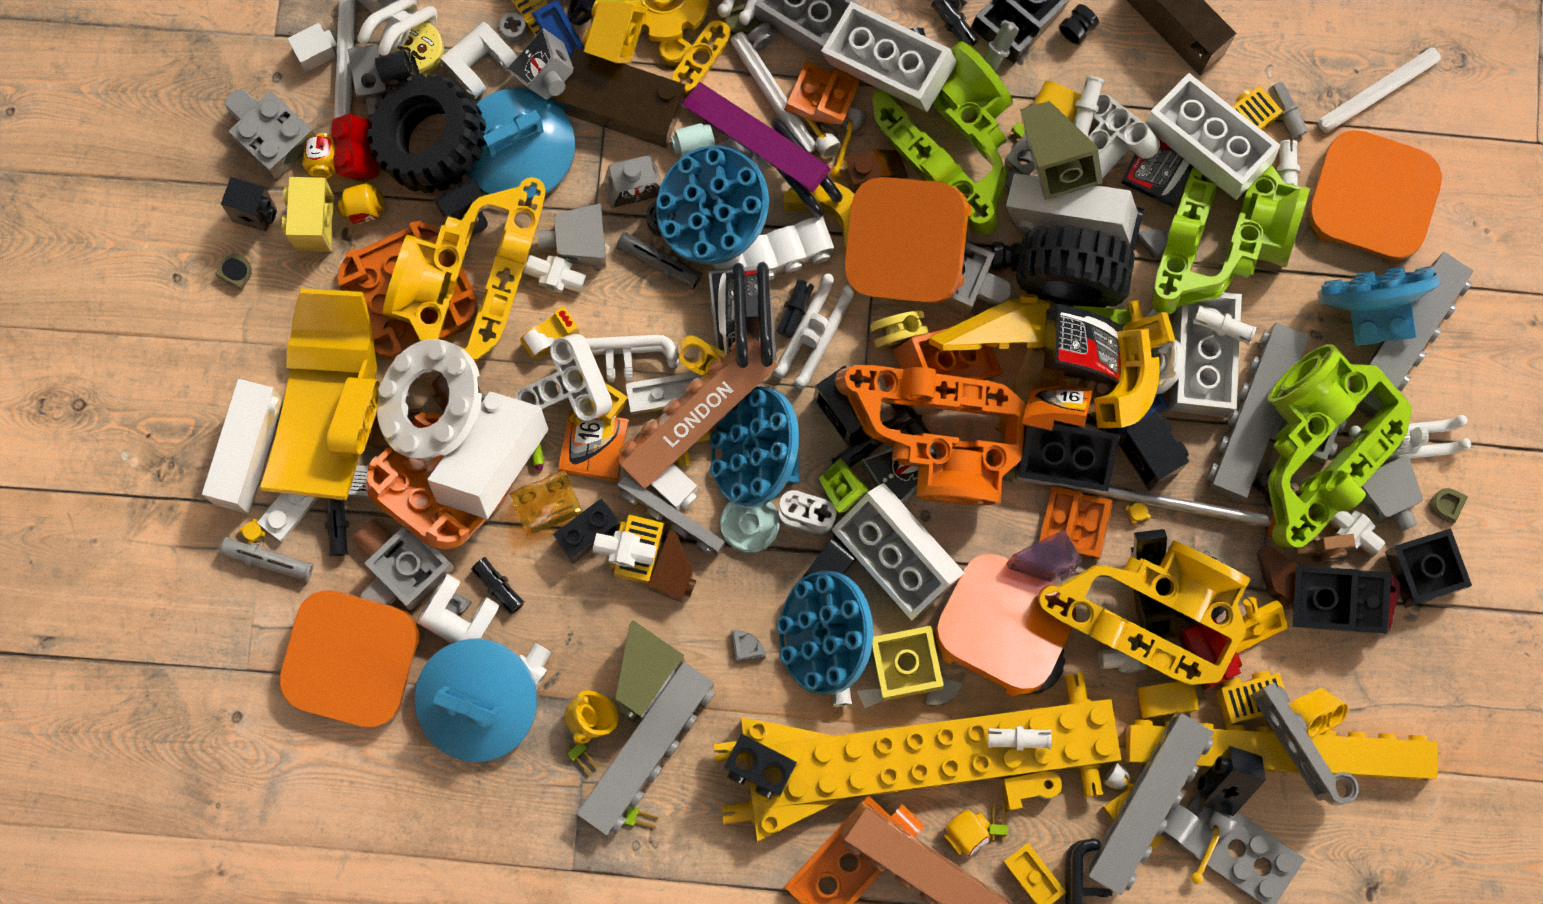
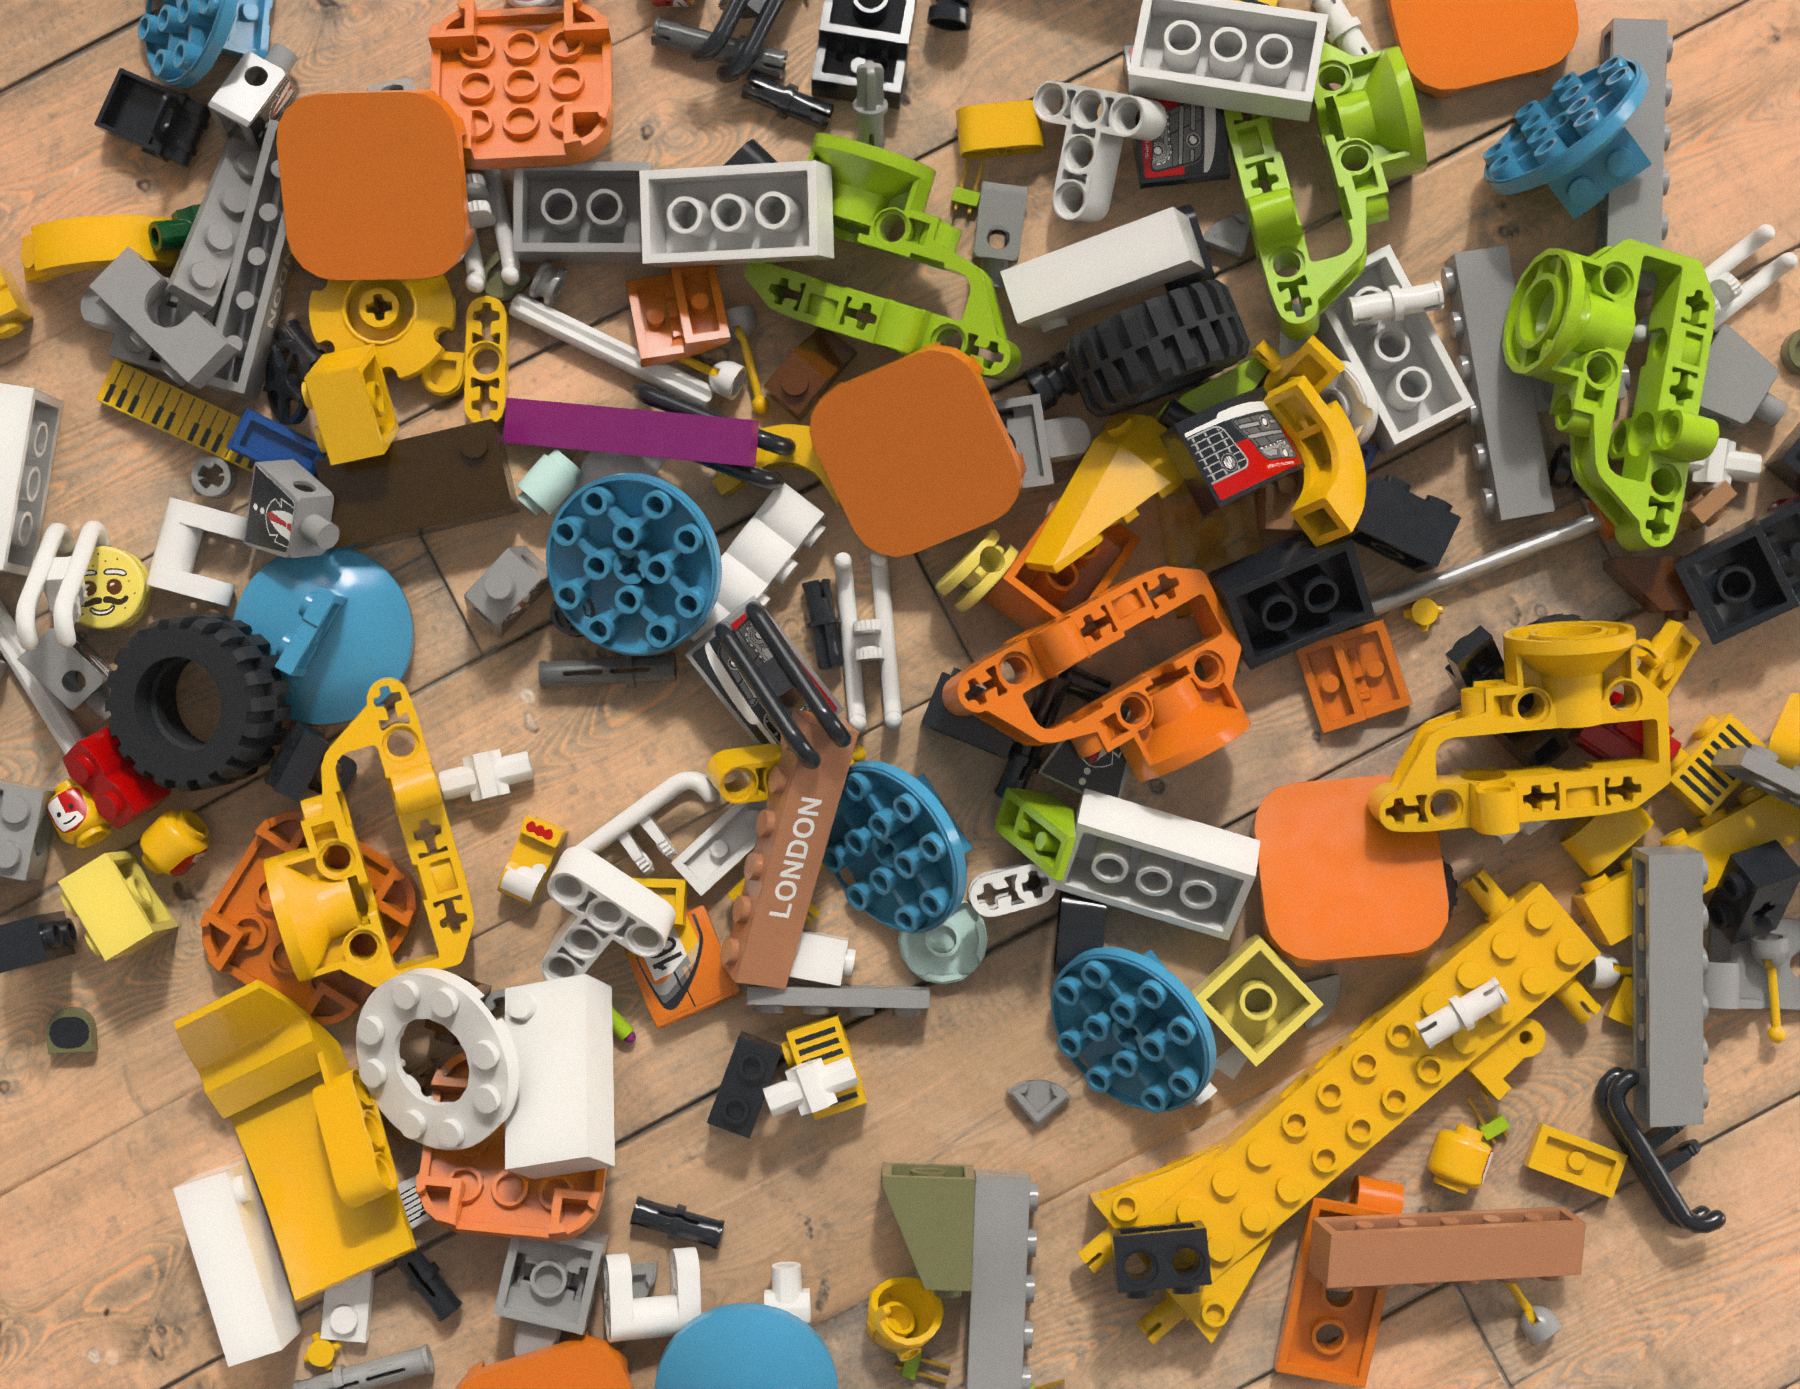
camera: 30 degrees left, 10 degrees up
(371, 537) = (482, 1263): nougat brick -> none
(396, 67) = (99, 641): black beam -> none
(546, 503) = (670, 1081): clear yellow bracket -> none
(577, 236) = (482, 707): light grey torso -> none
(672, 571) = (886, 1065): reddish brown slope -> none
(1048, 559) = (1354, 752): clear purple slope -> none
(1057, 403) = (1248, 550): orange slope -> none
(1059, 151) = (1047, 212): olive slope -> none
(1088, 103) = (1035, 114): white pin -> none

